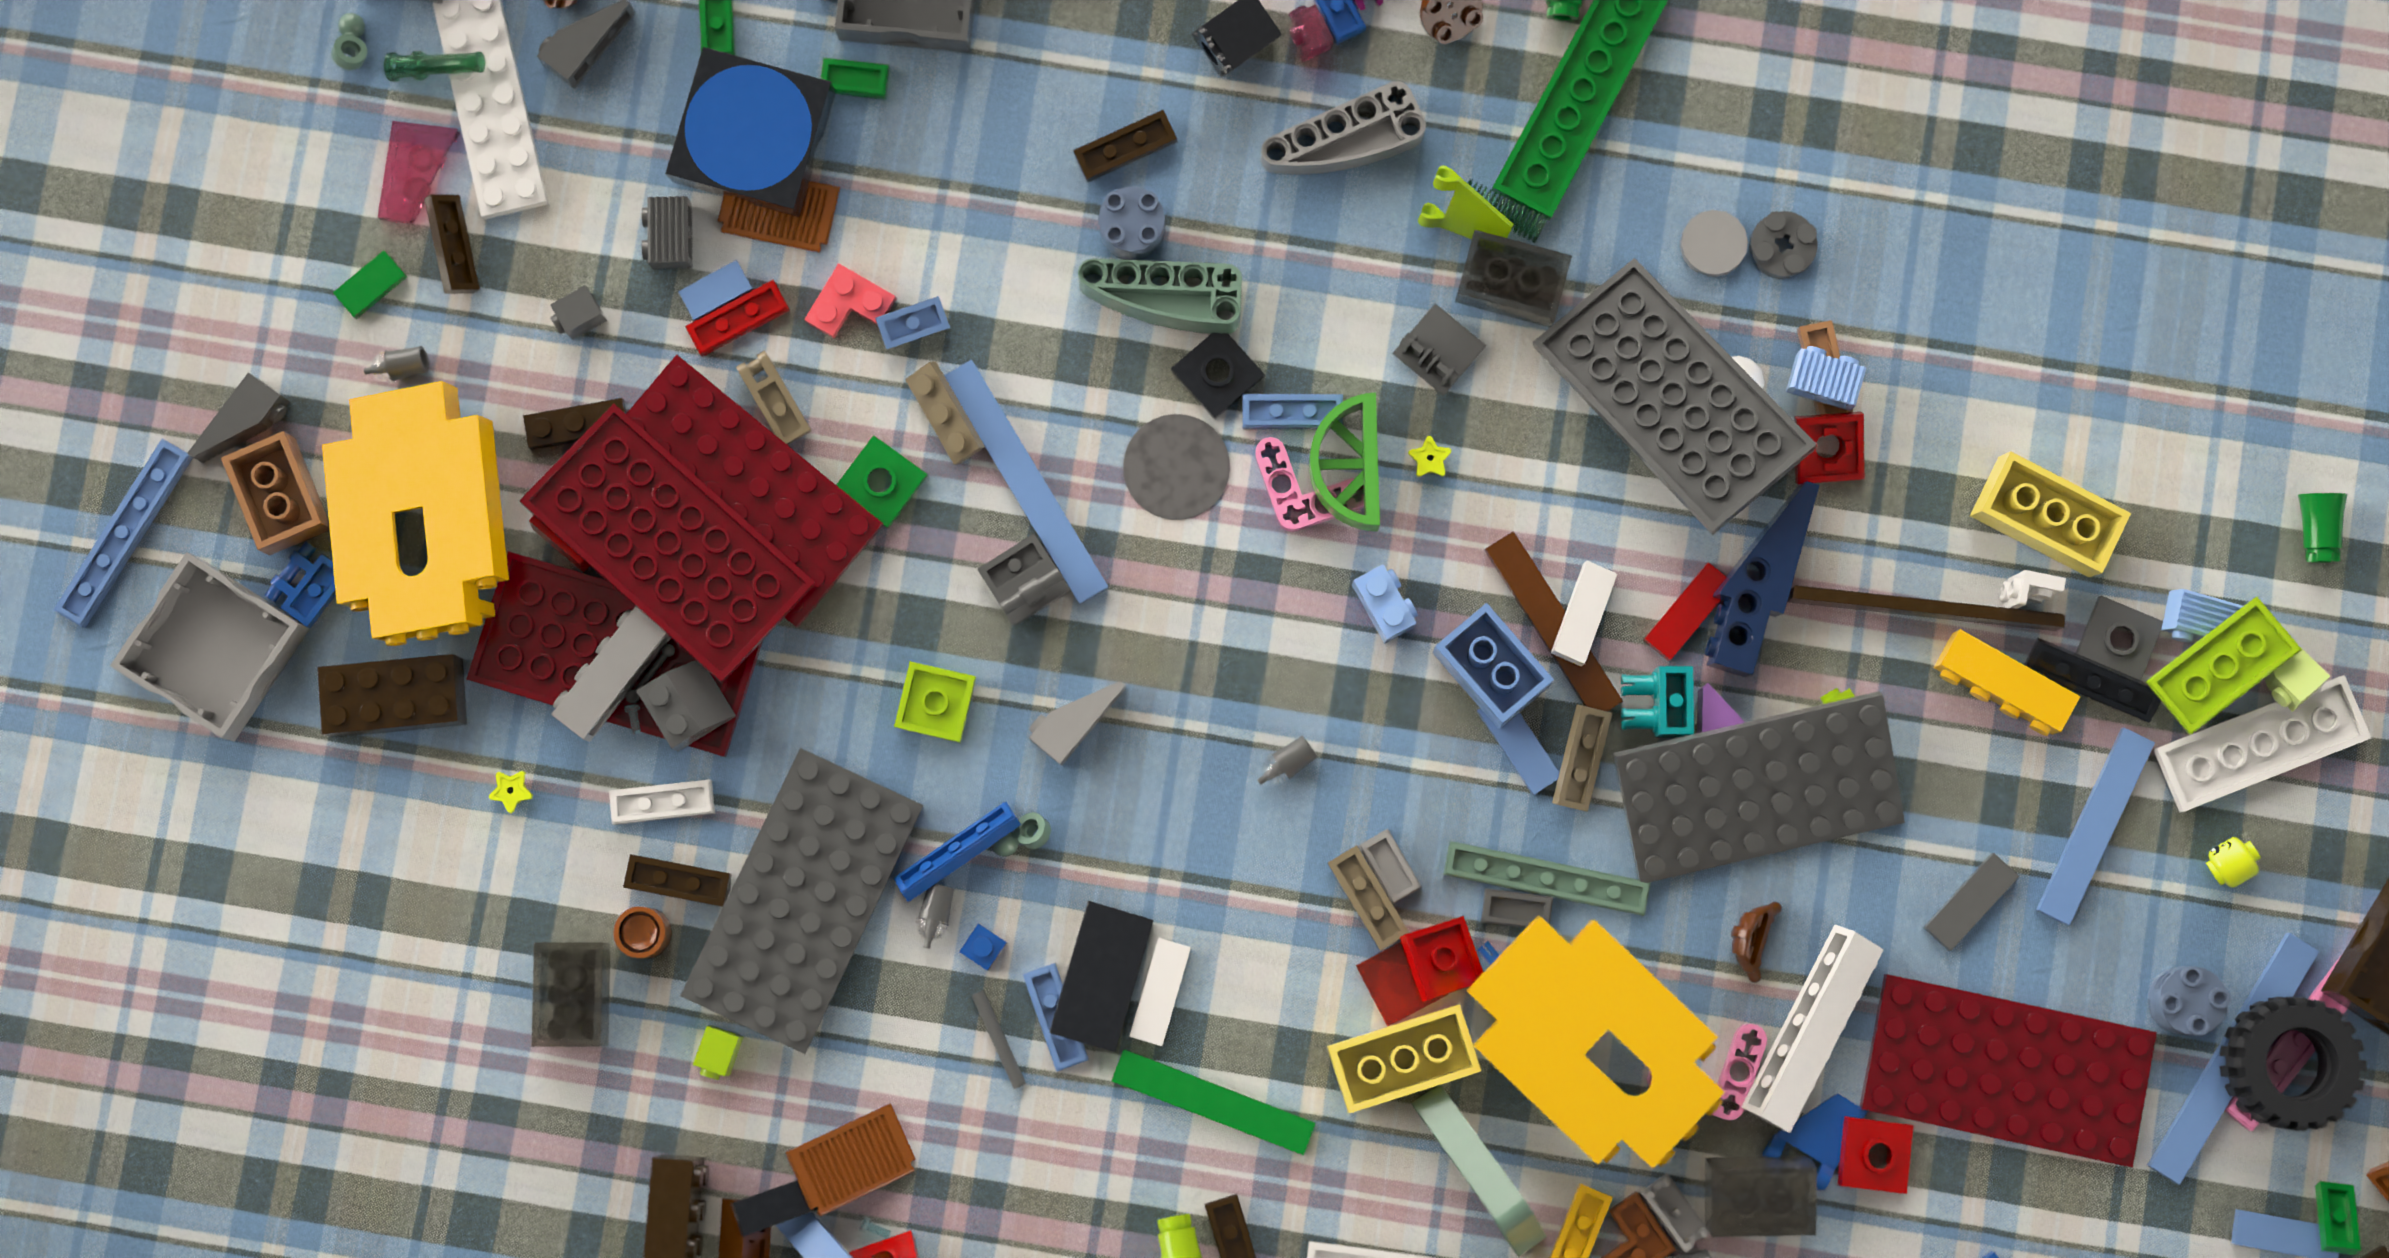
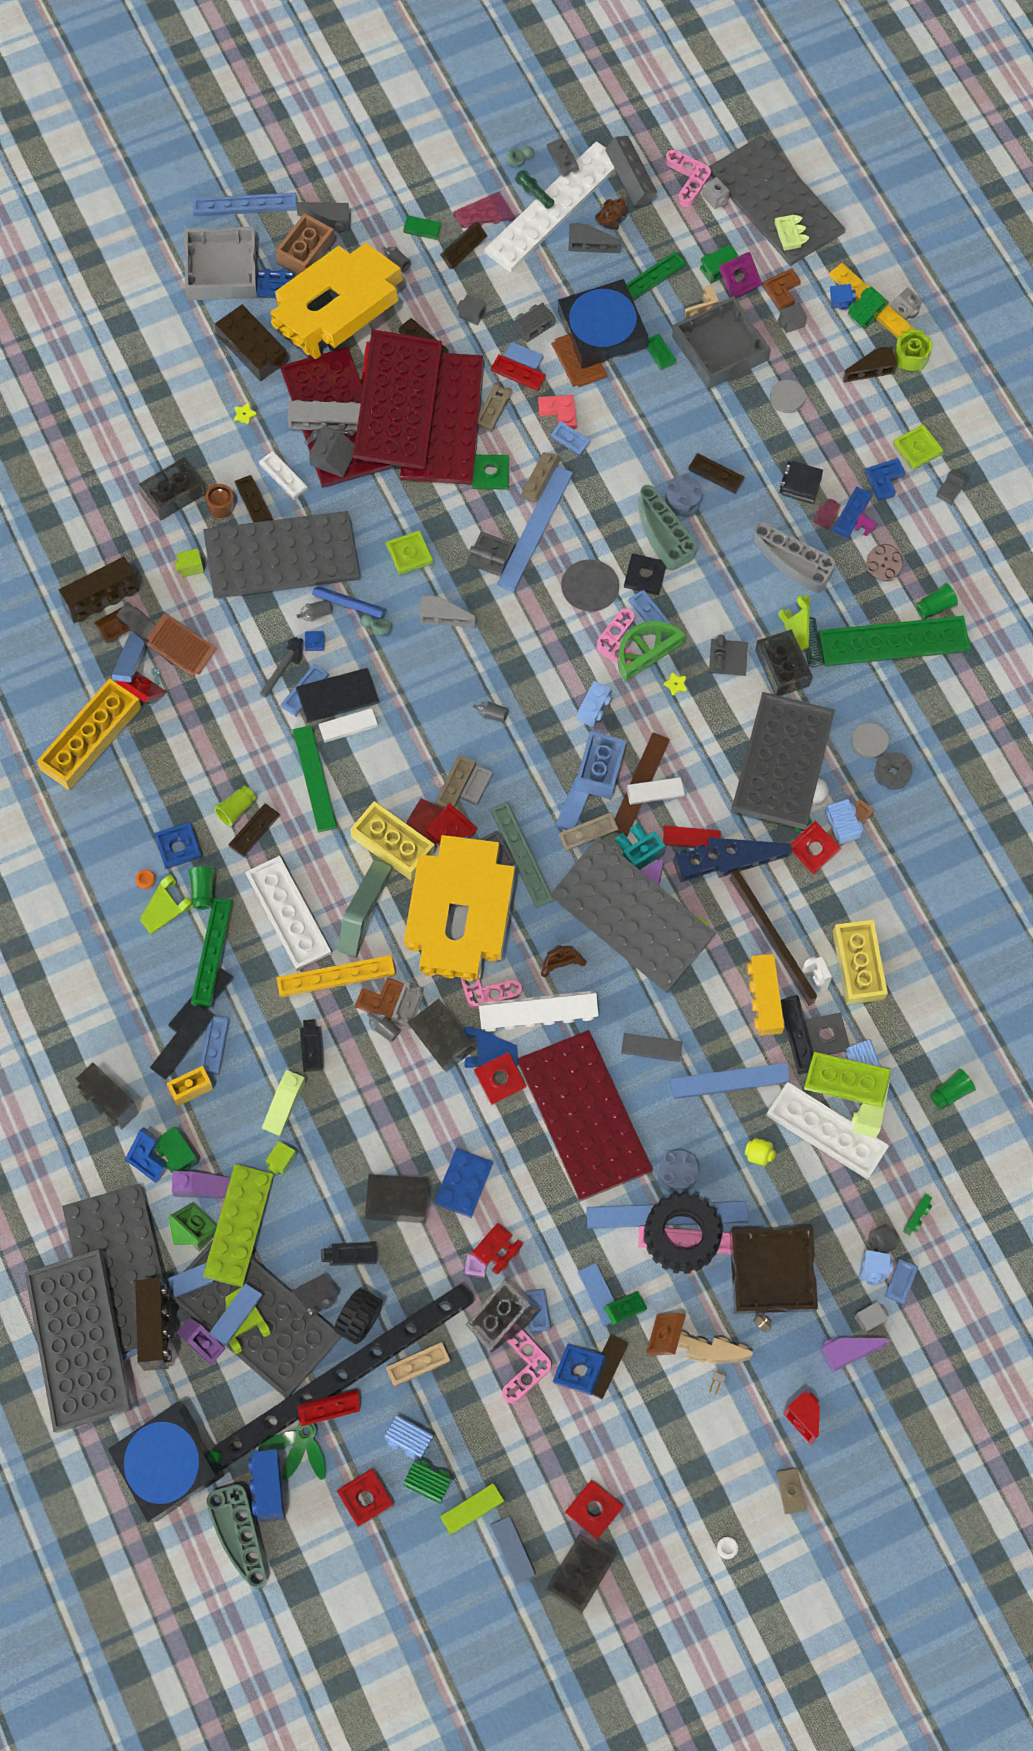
camera: 50 degrees right, 15 degrees down
(973, 982) = (295, 644): none -> black plate

